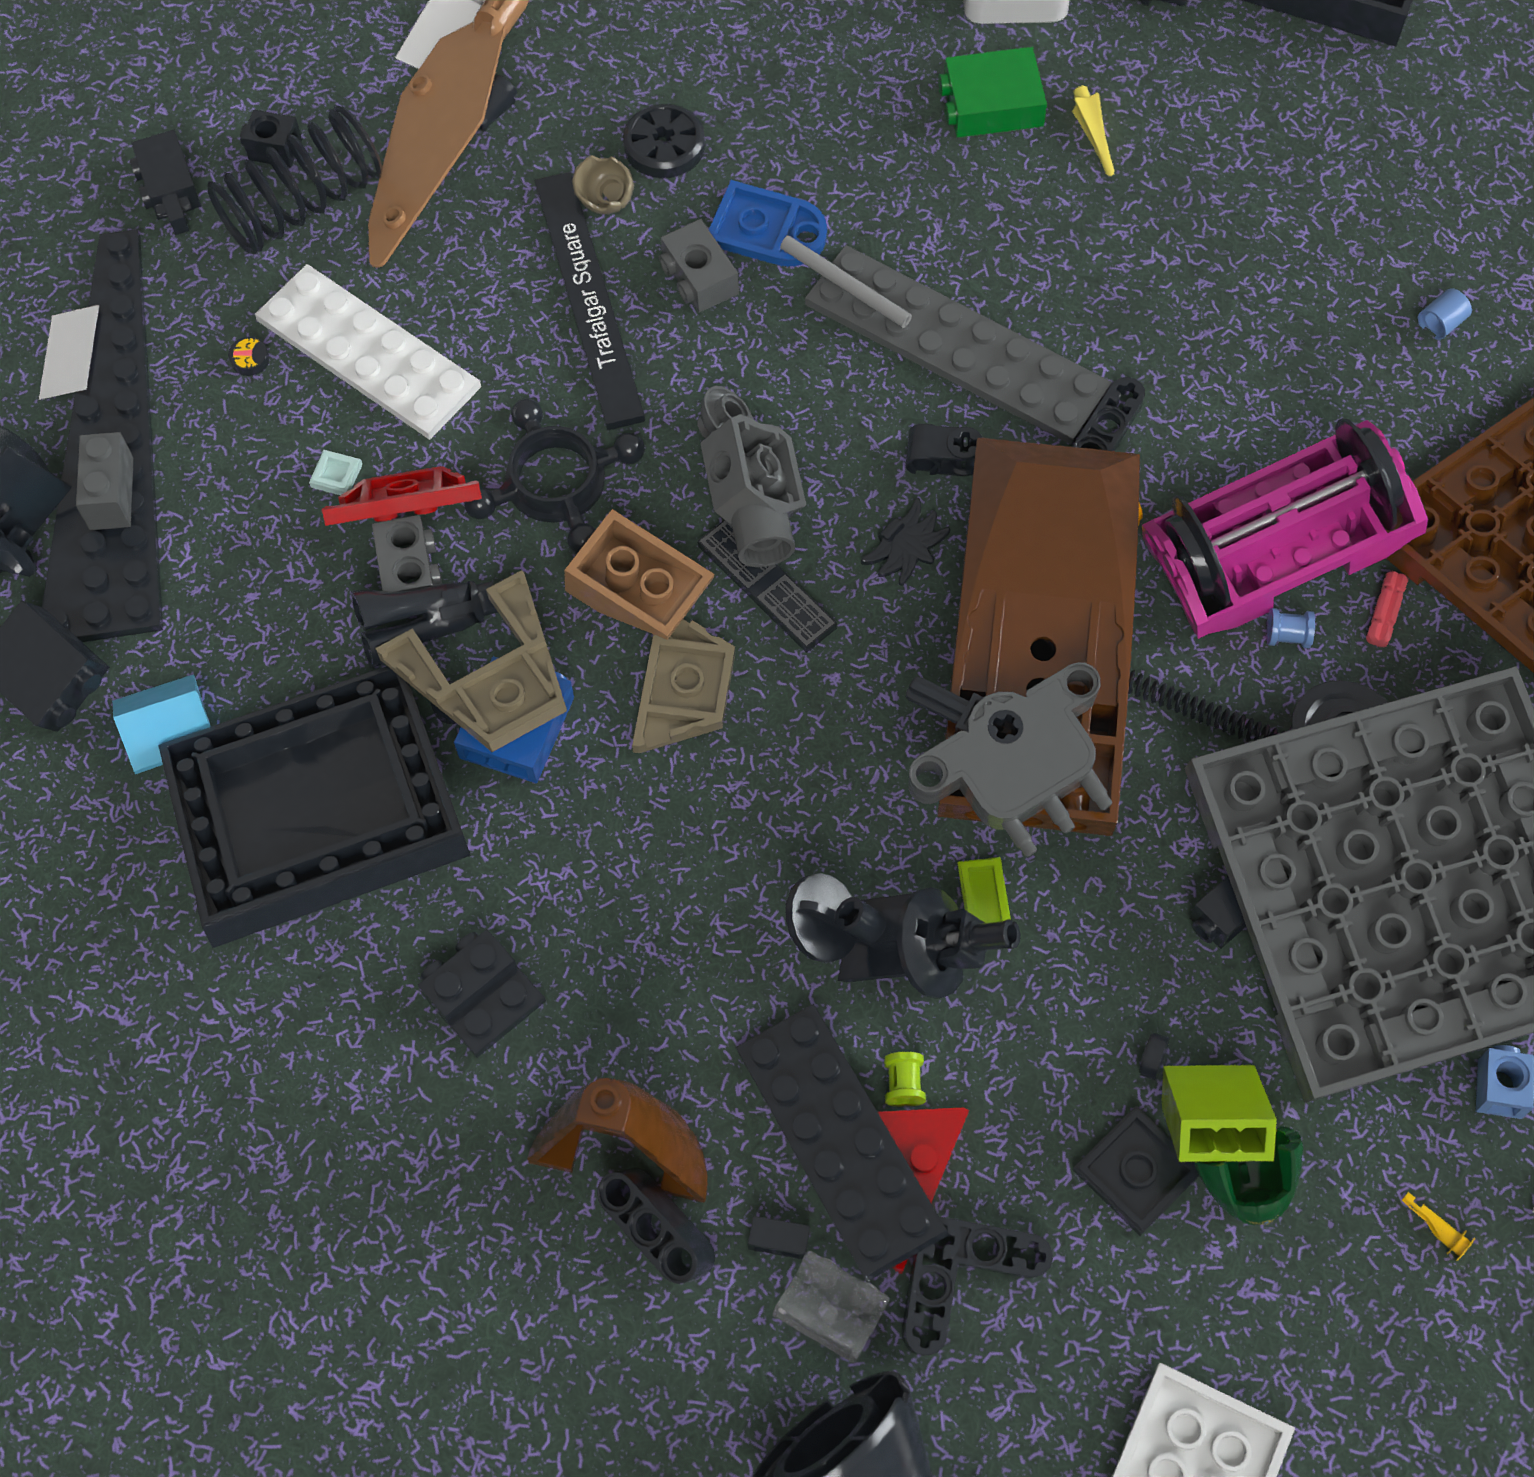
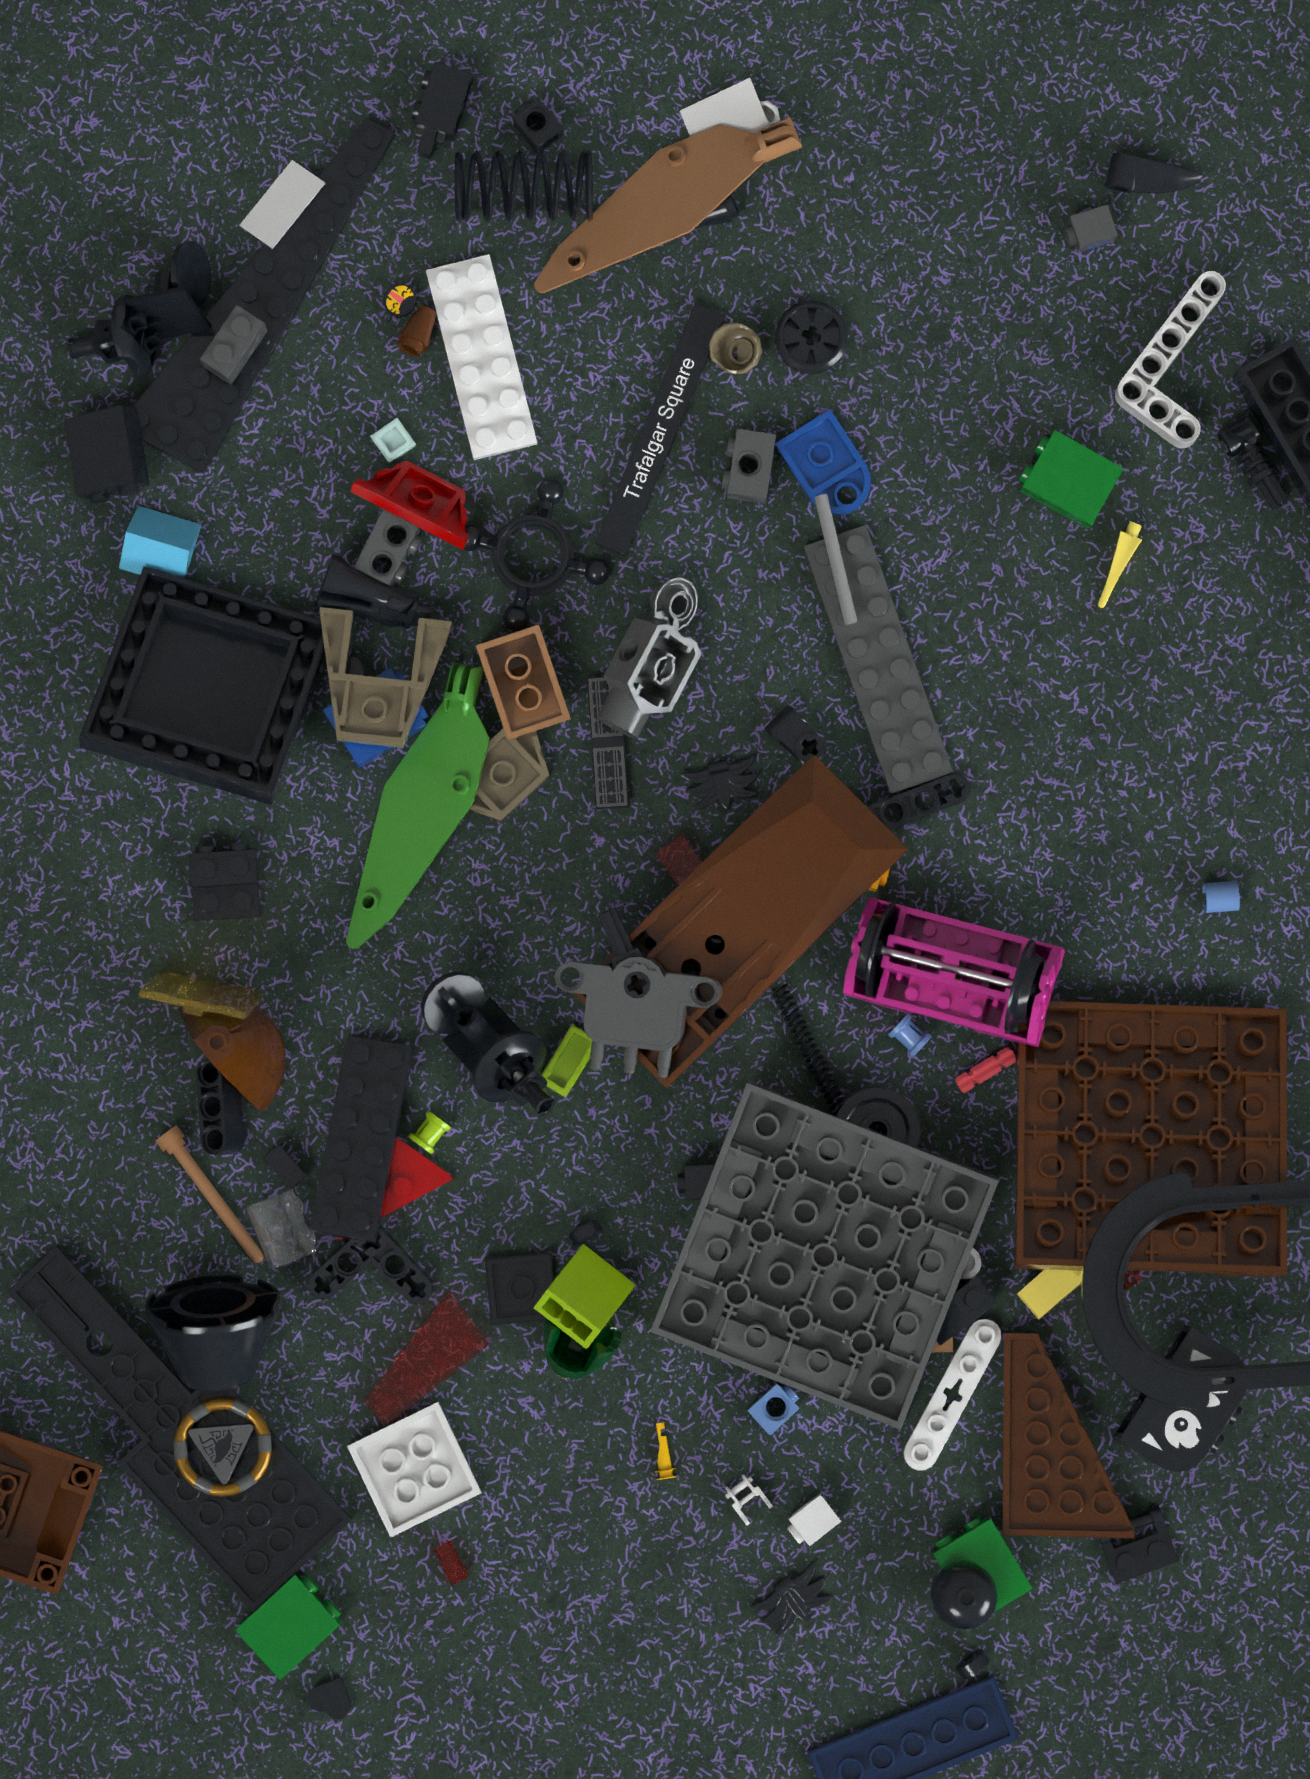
camera: 35 degrees right, 20 degrees up
(287, 368) = (417, 332): none -> reddish brown cone
(538, 1105) = (201, 995): none -> clear yellow door
(630, 768) = (422, 803): none -> bright green wing
(635, 1309) = (173, 1144): none -> medium nougat piece
(929, 635) = (678, 859): none -> clear red plate
(1108, 1322) = (433, 1354): none -> clear red wing

